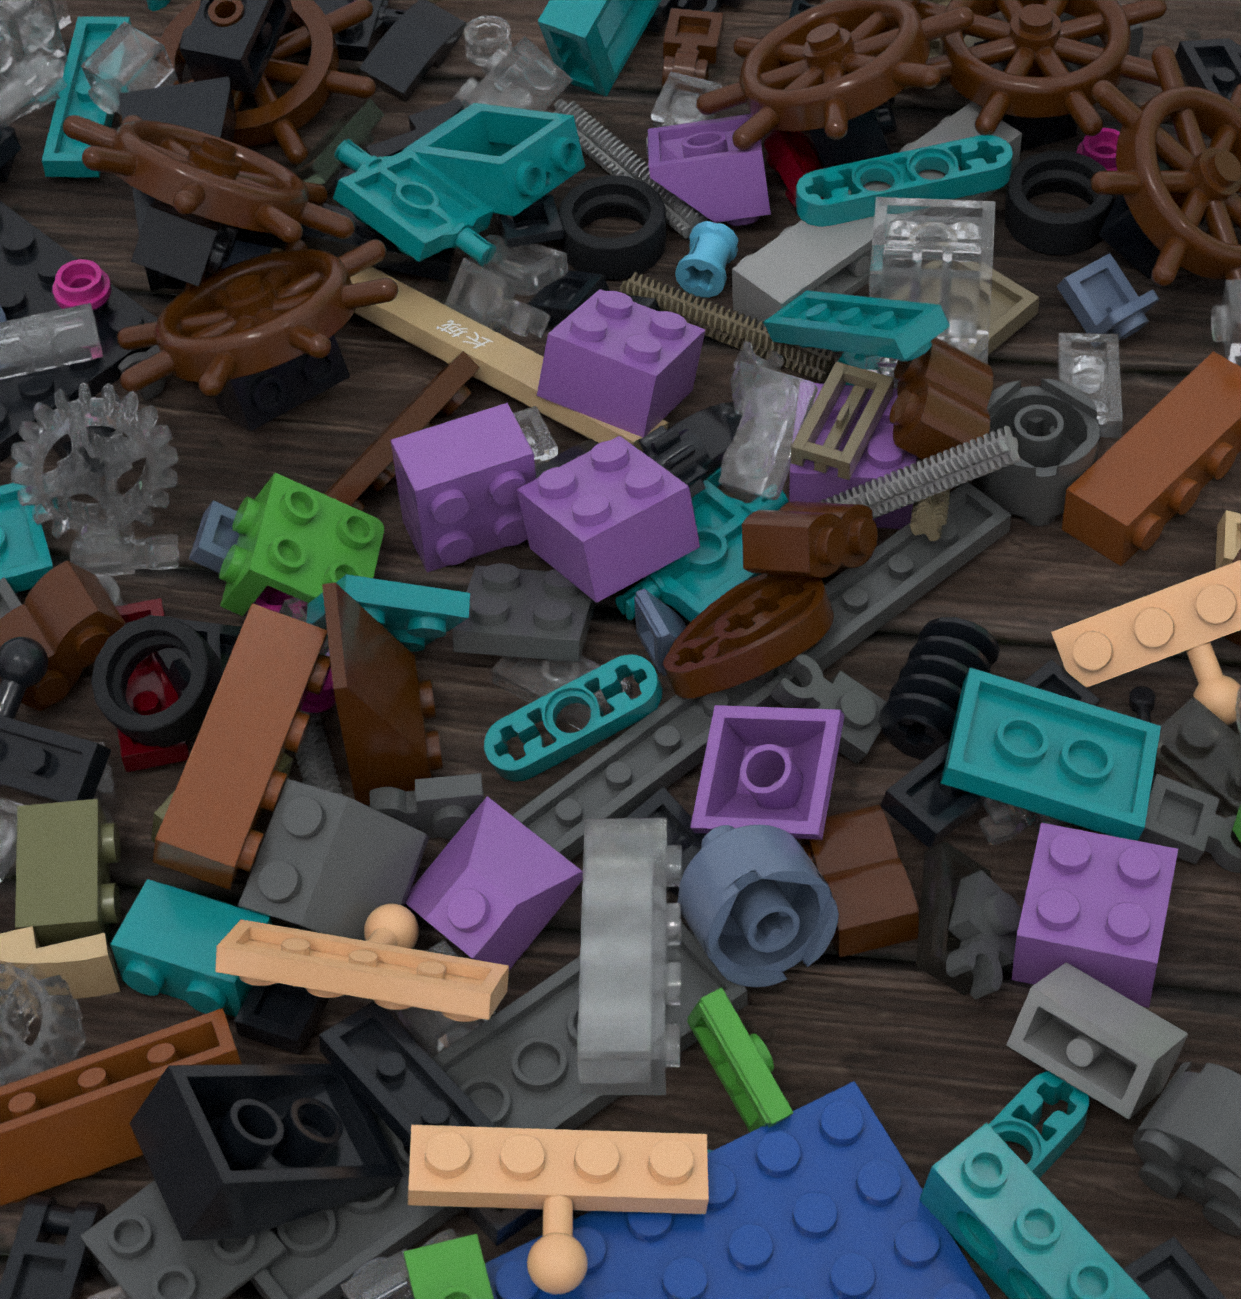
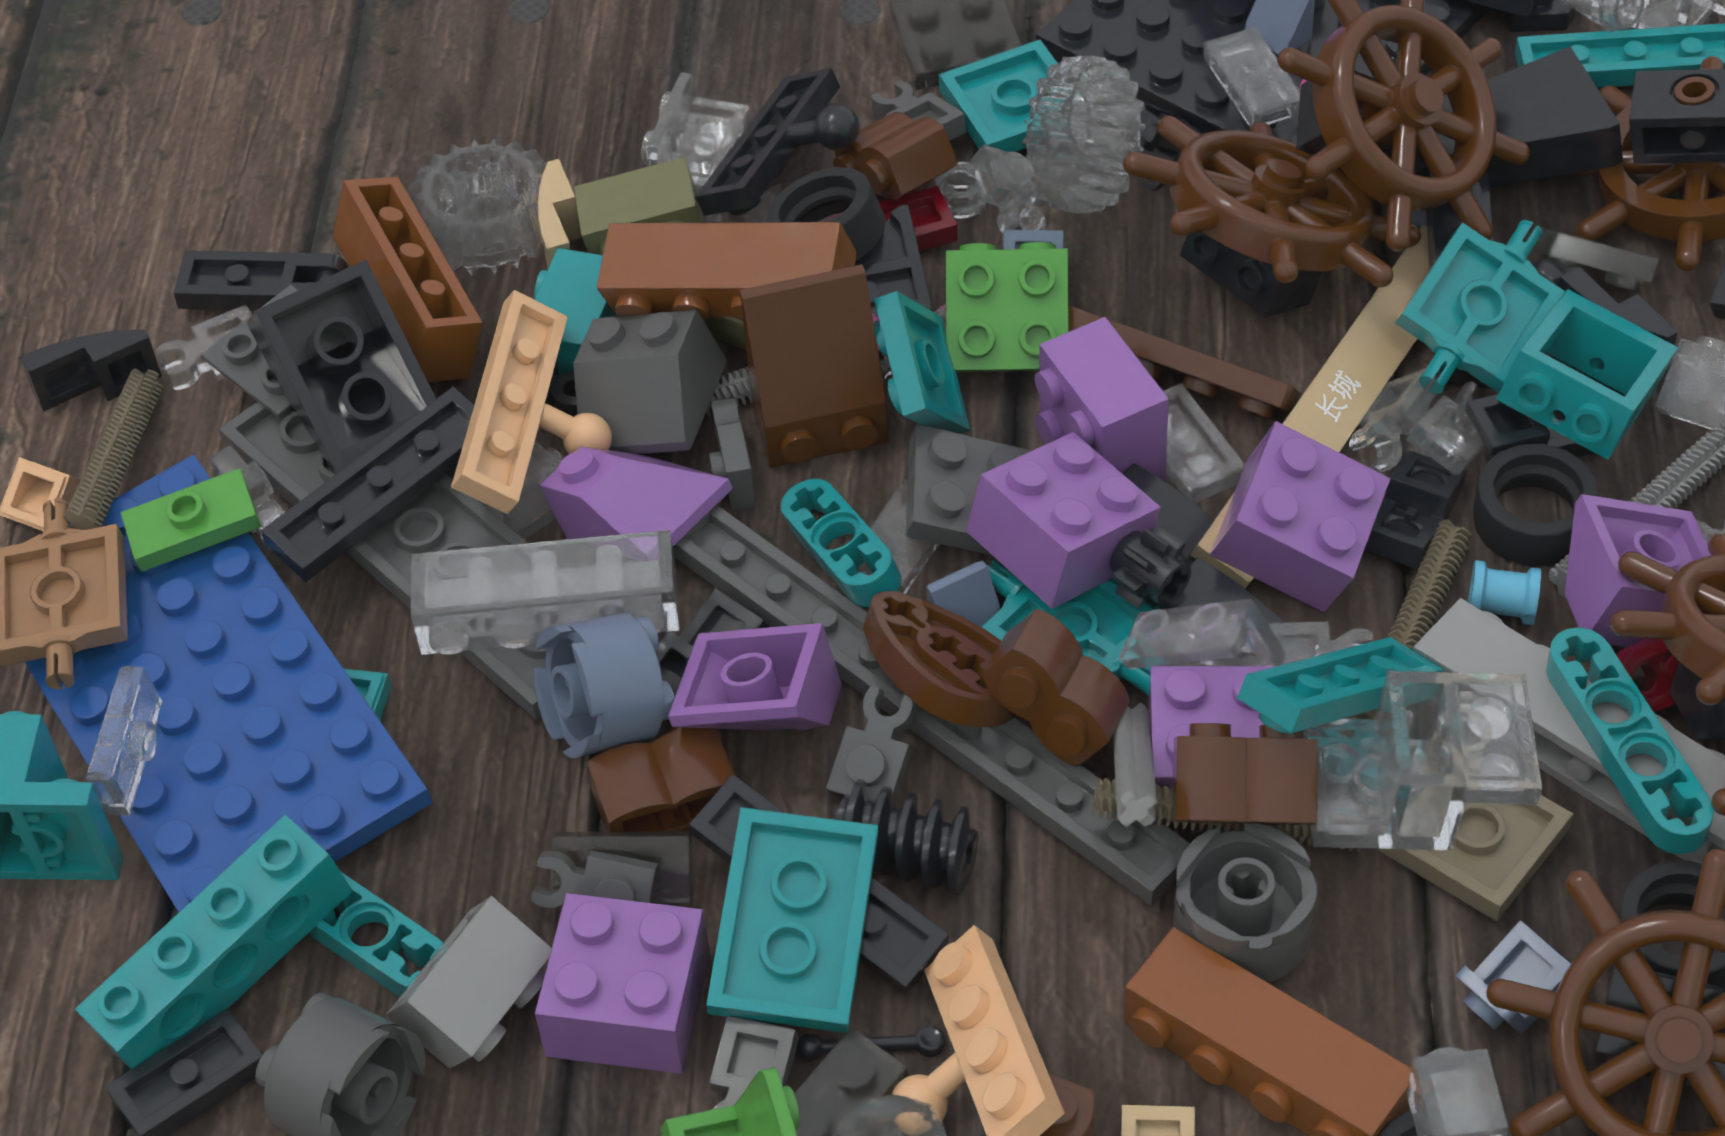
camera: 85 degrees right, 0 degrees up
(126, 64) = (1629, 47): clear brick -> none
(558, 1174) = (309, 565): light nougat plate -> none
(739, 1061) = (442, 698): bright green plate -> none
(828, 454) = (1196, 701): dark tan tile -> none
(1093, 367) = (1378, 969): clear plate -> none

